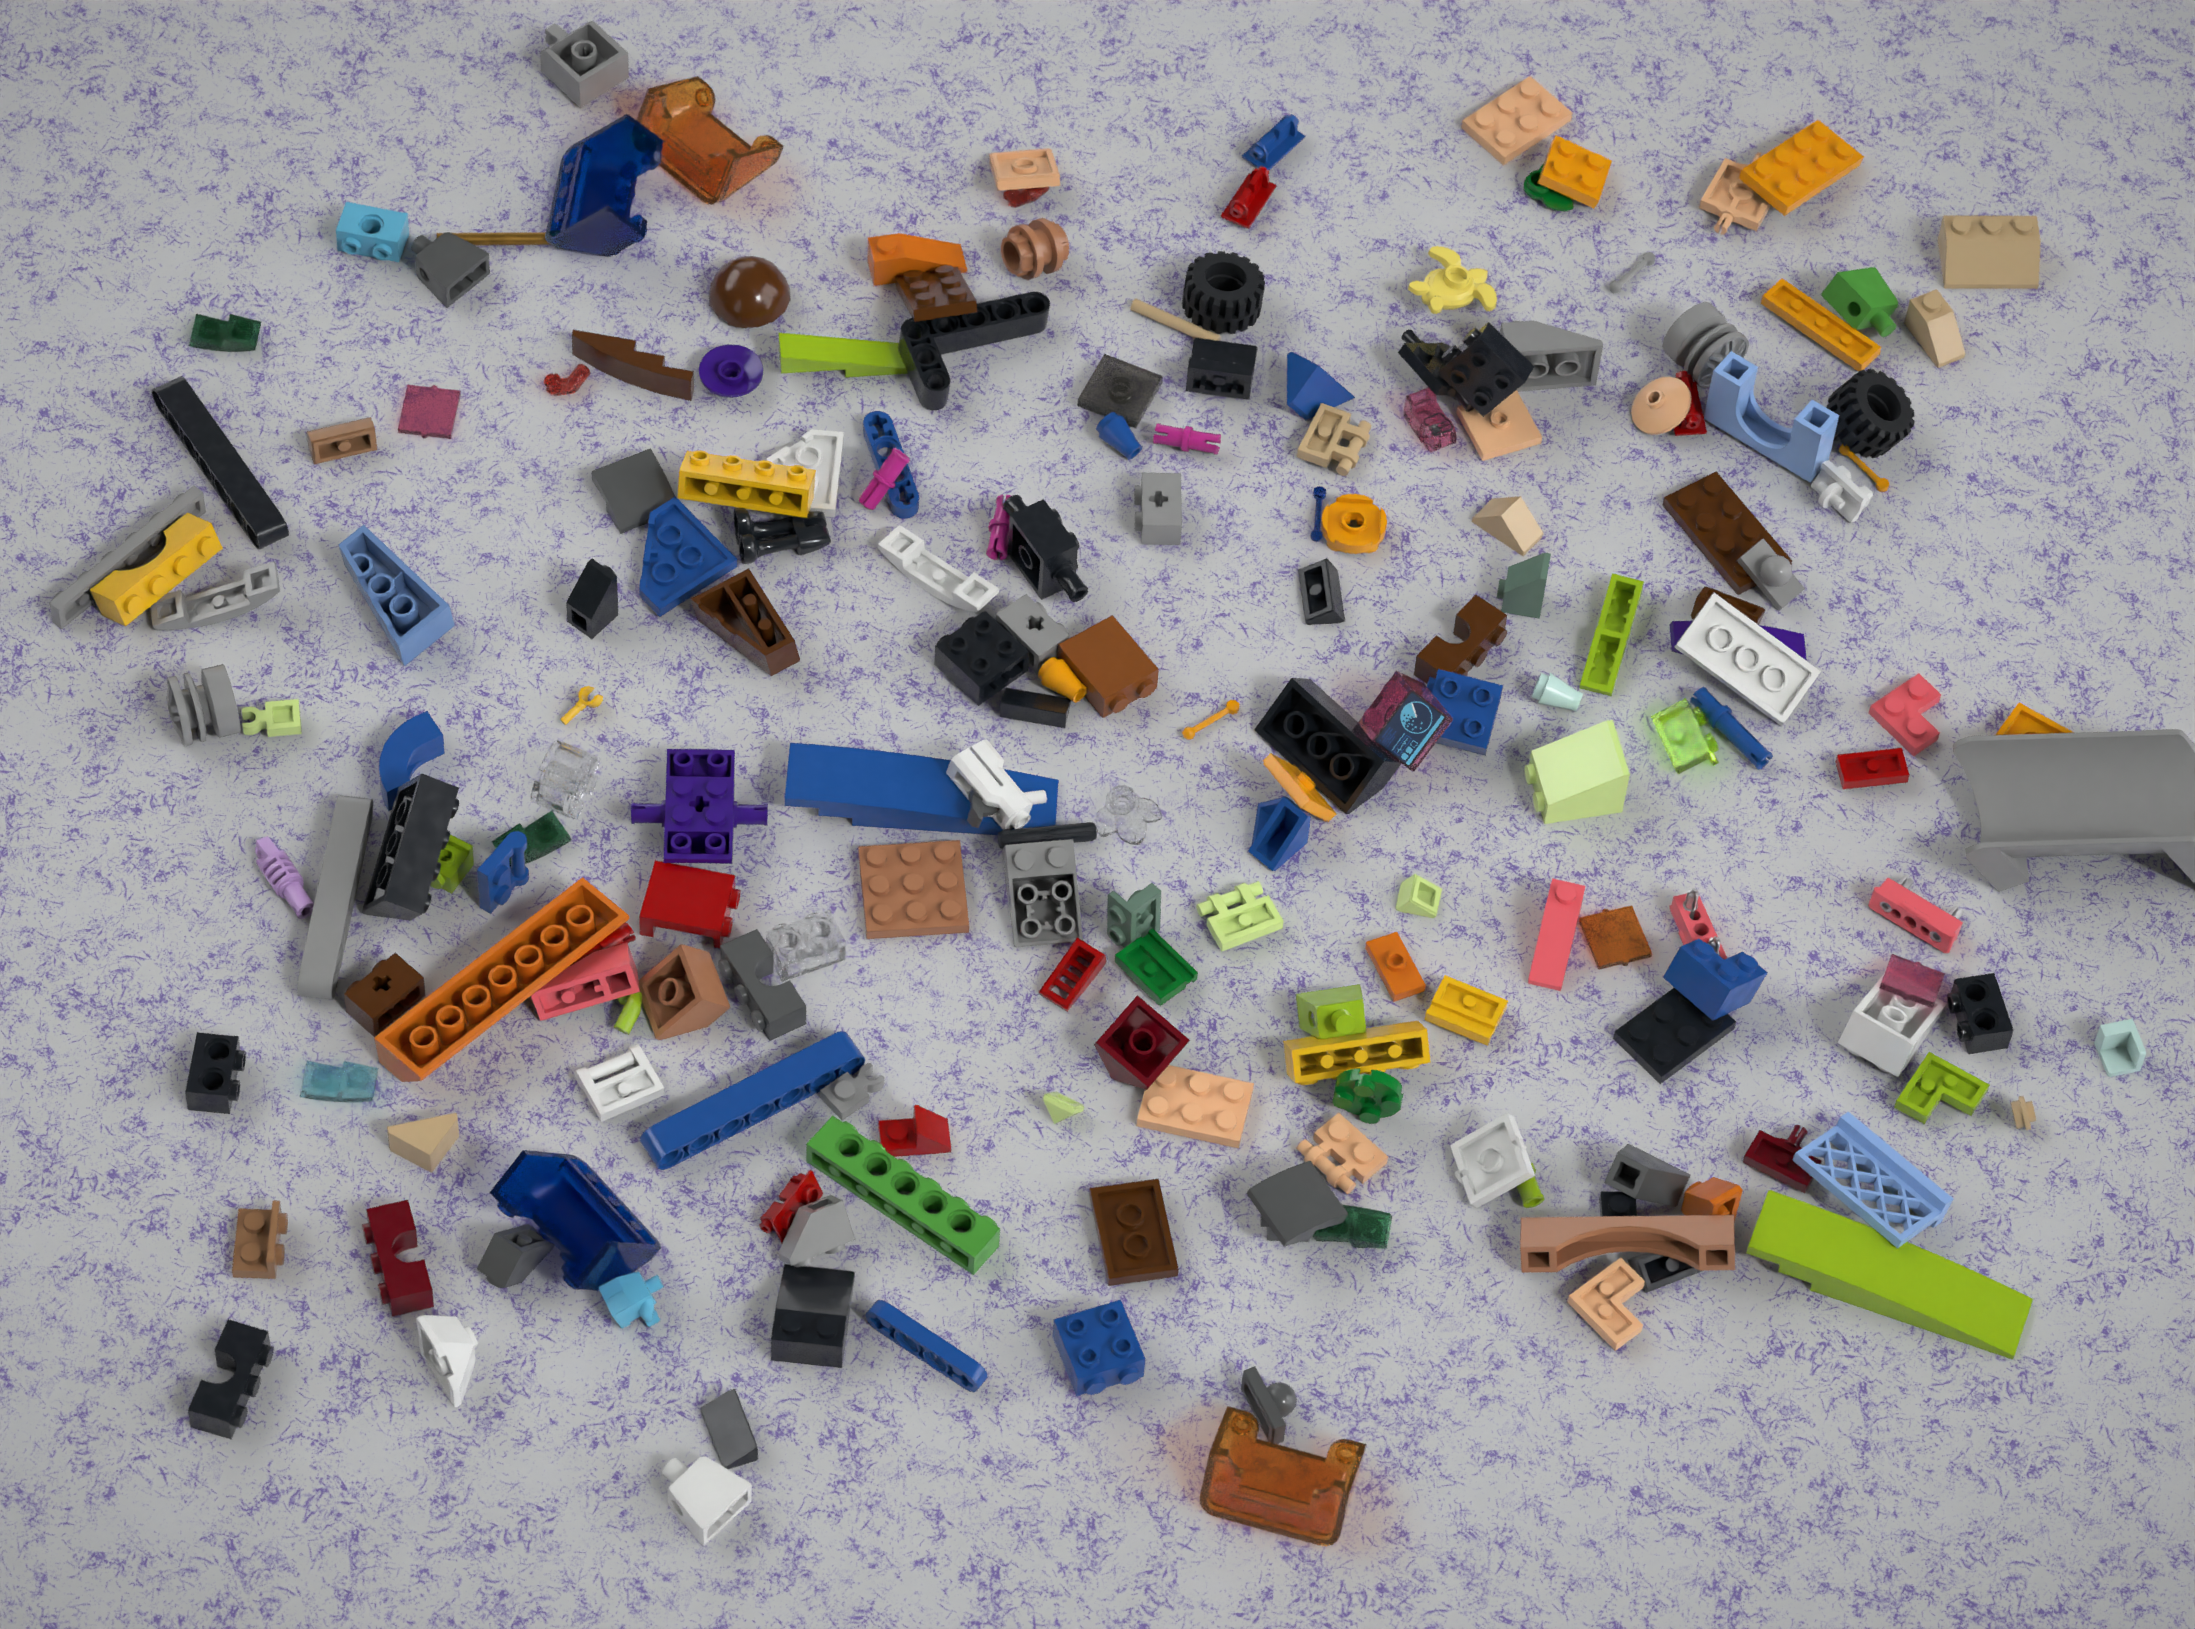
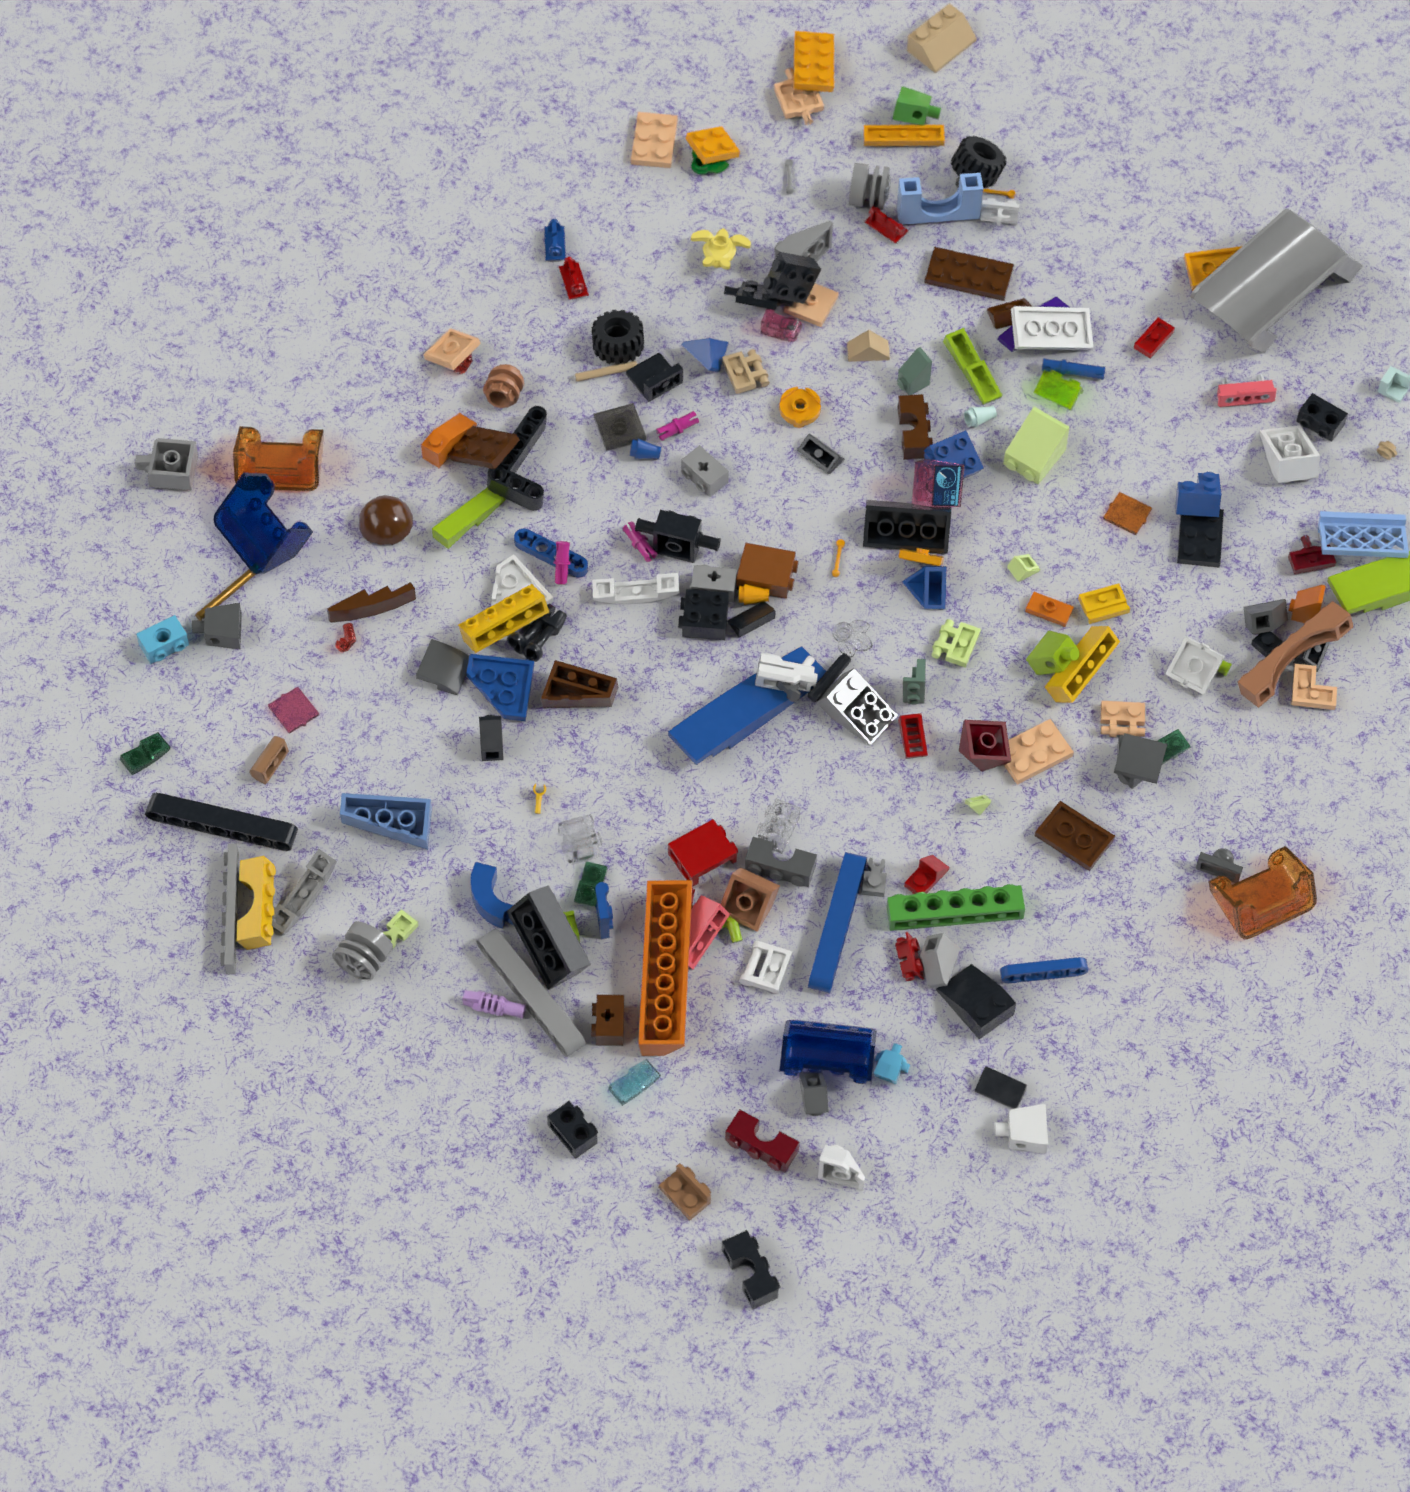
camera: 40 degrees left, 5 degrees up
(424, 1140) = (709, 1076): tan slope -> none
(699, 807) = (658, 801): dark purple slope -> none
(731, 370) = (423, 560): dark purple dish -> none
(913, 889) = (794, 756): nougat plate -> none
(1099, 1348) = (1123, 904): blue brick -> none
(1156, 967) = (947, 700): green plate -> none
(1319, 494) = (765, 404): clear blue hinge -> none
(1368, 1095) = (1111, 681): green plate -> none
(1556, 934) = (1104, 532): coral slope -> none
(1661, 405) = (883, 239): light nougat dish -> none
(1694, 921) = (1159, 478): coral piece -> none
(1771, 574) = (1014, 277): light grey tile -> none
(1902, 710) = (1136, 302): coral plate -> none
(1912, 981) = (1277, 426): clear pink piece -> none
(1935, 328) = (957, 96): tan slope -> none
(1940, 1081) = (1337, 465): lime plate -> none

